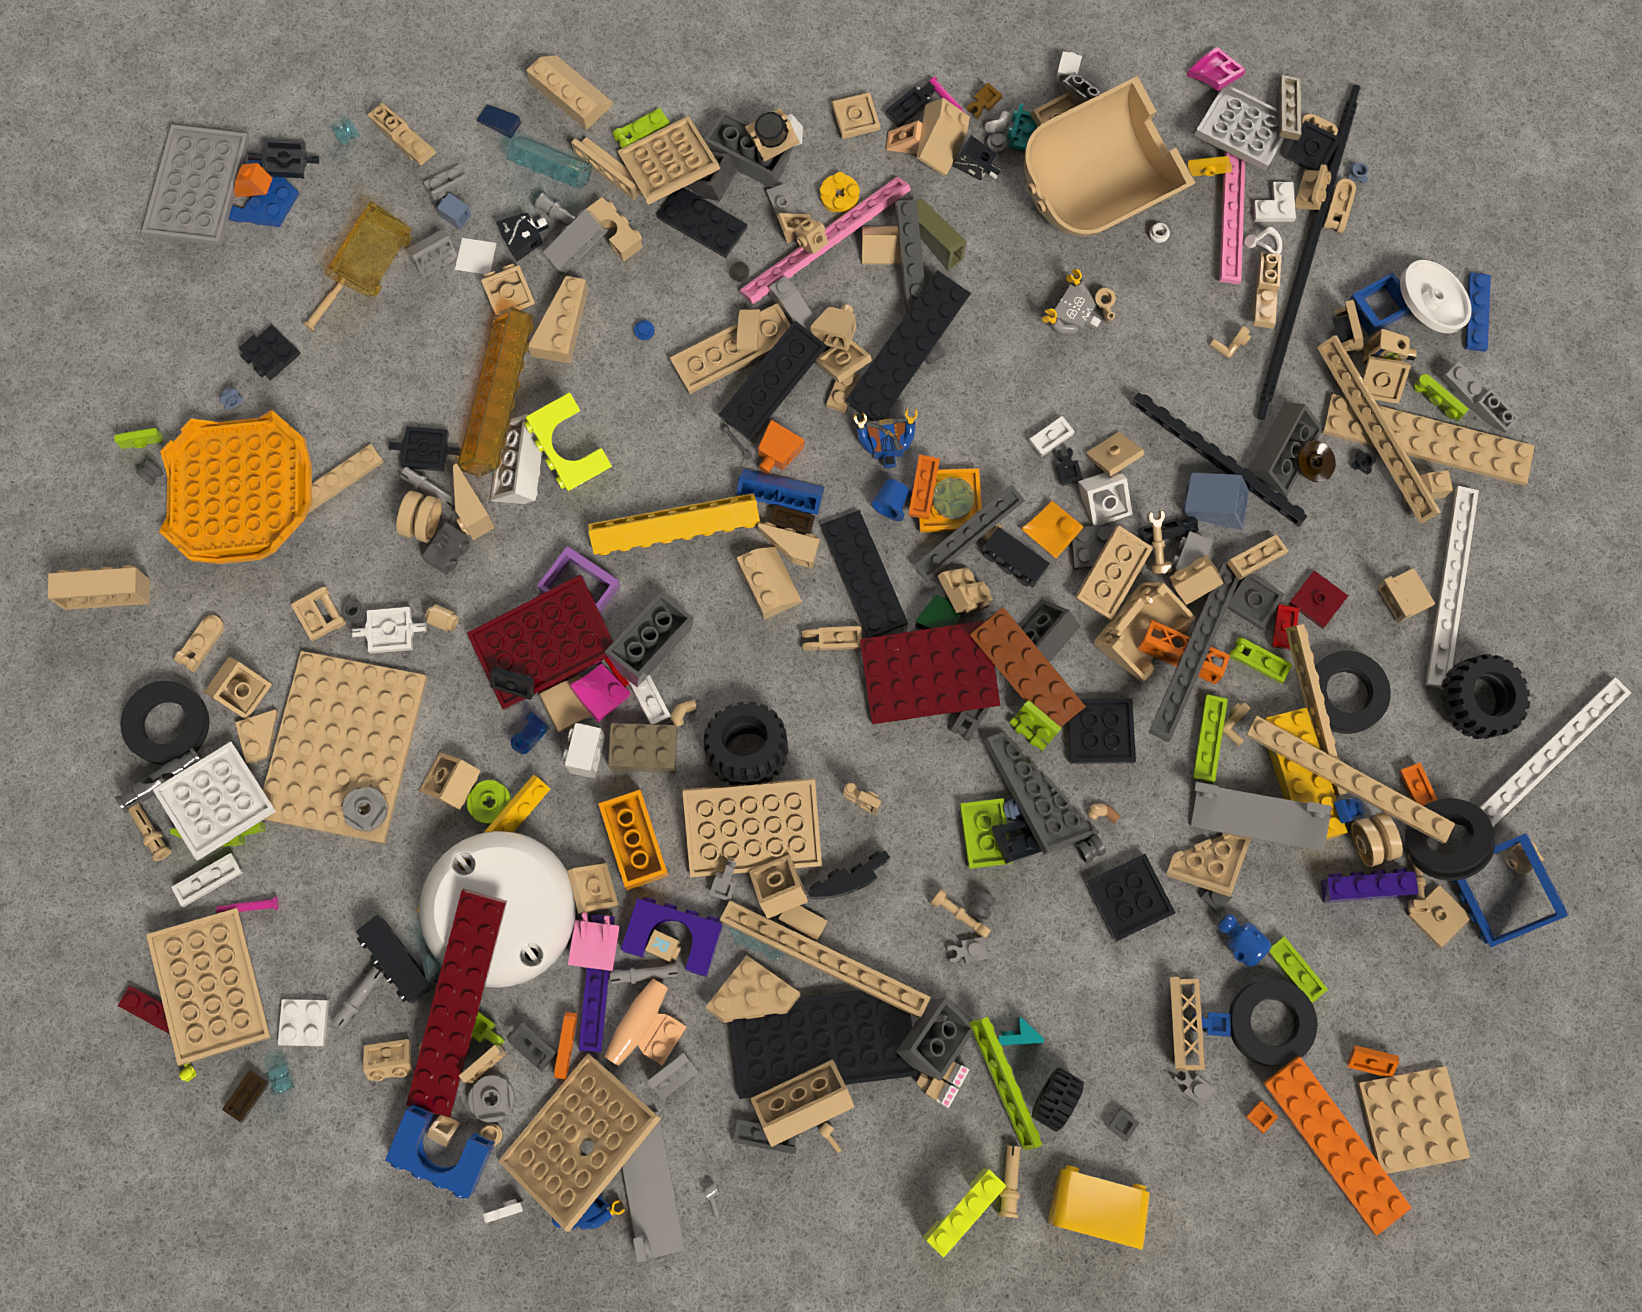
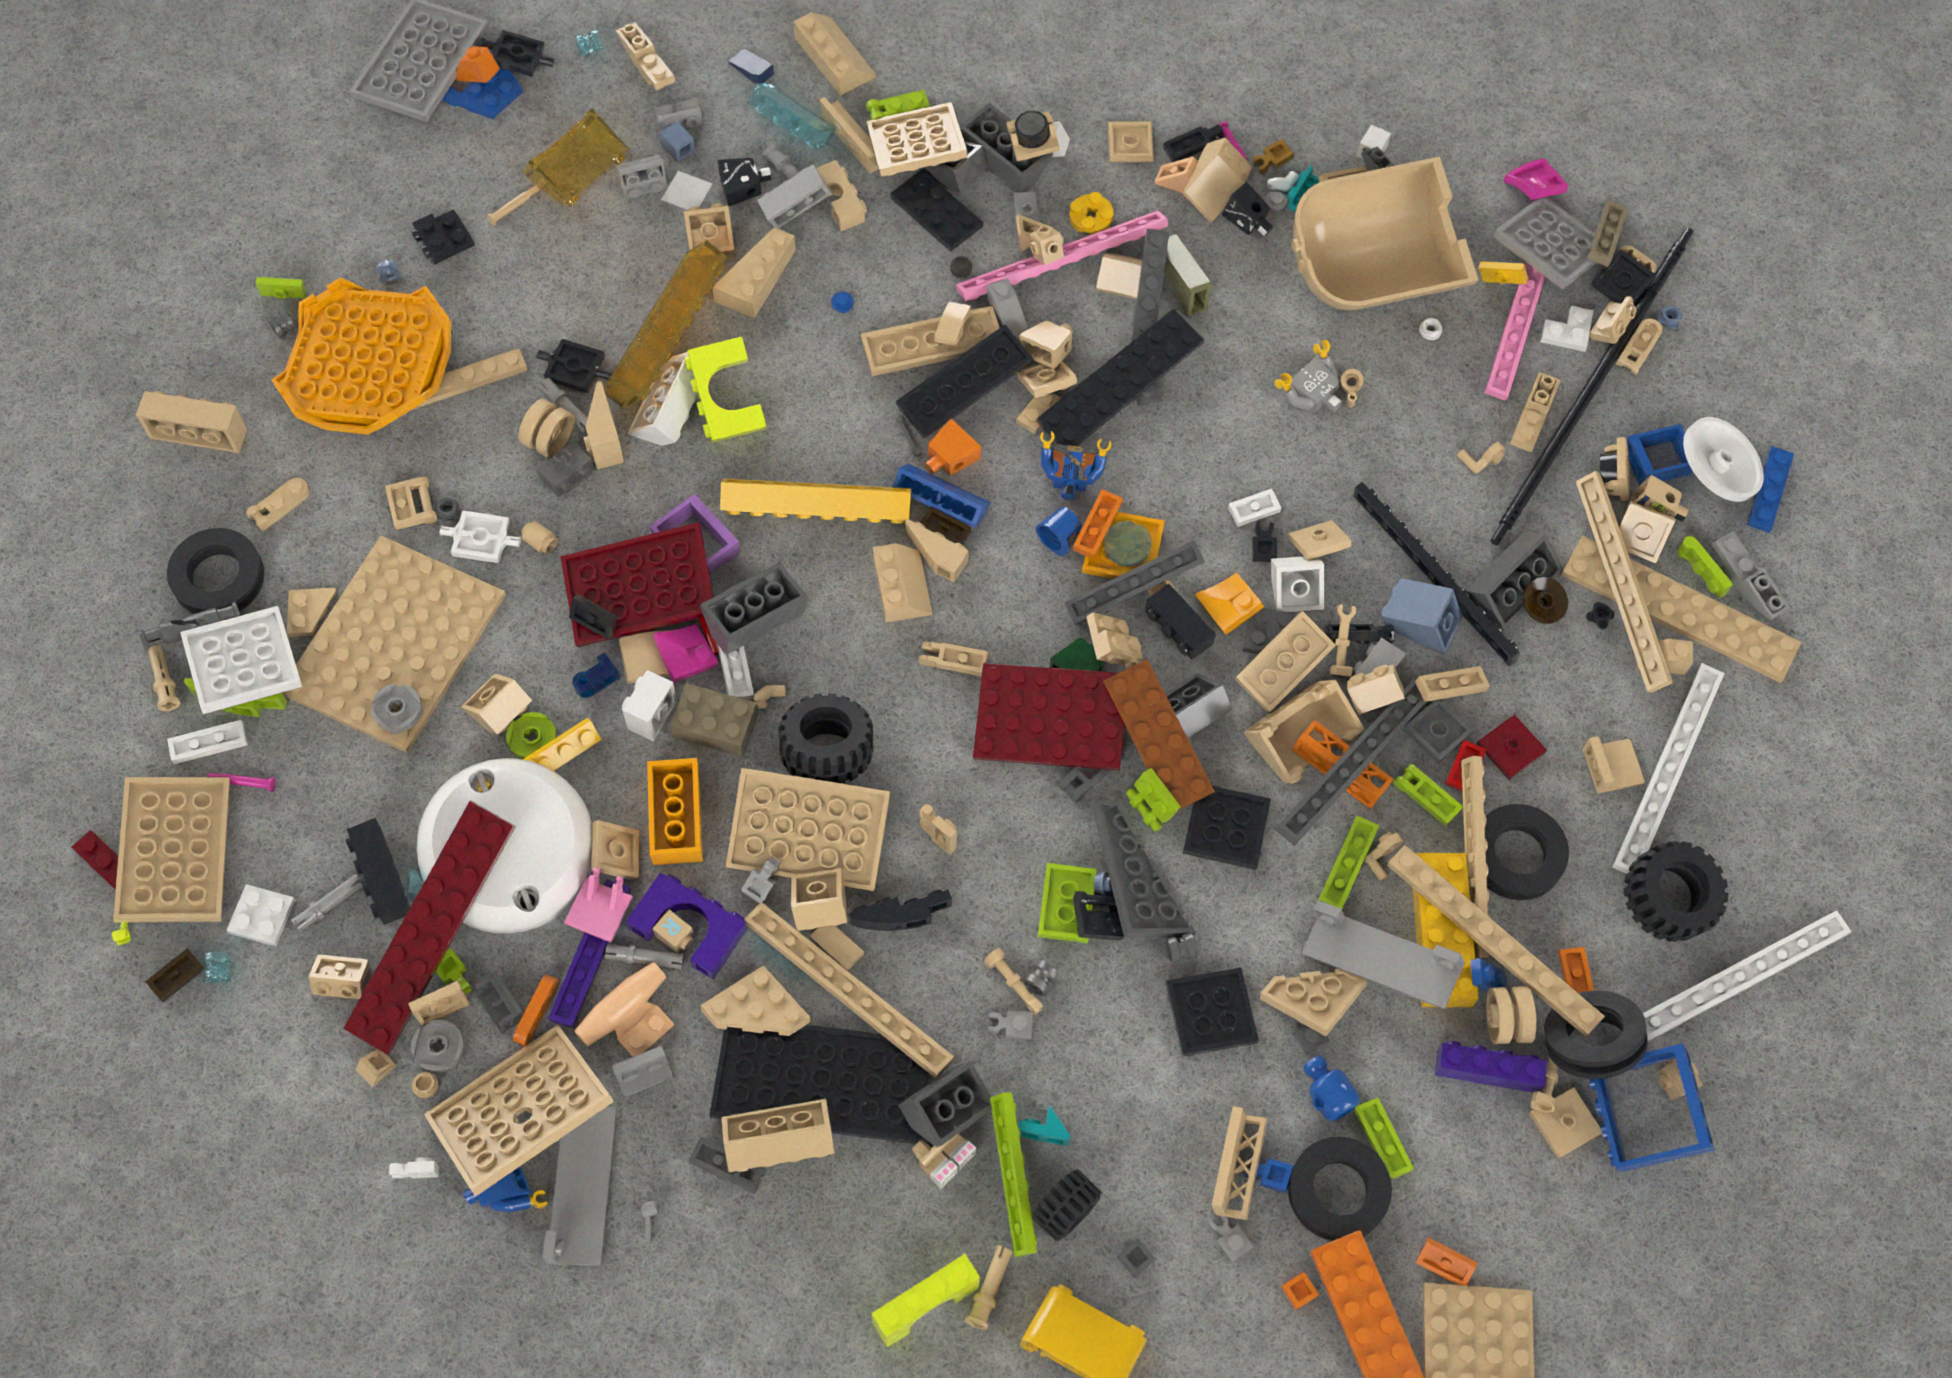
camera: 15 degrees right, 10 degrees down
(237, 688) = (303, 556): tan slope -> none
(409, 1154) = (330, 1078): blue arch -> none
(825, 1130) = (797, 1176): tan hand -> none
(864, 574) = (1008, 600): black plate -> none
(1103, 810) = (1199, 908): arm -> none
(1252, 240) = (1532, 359): white piece -> none

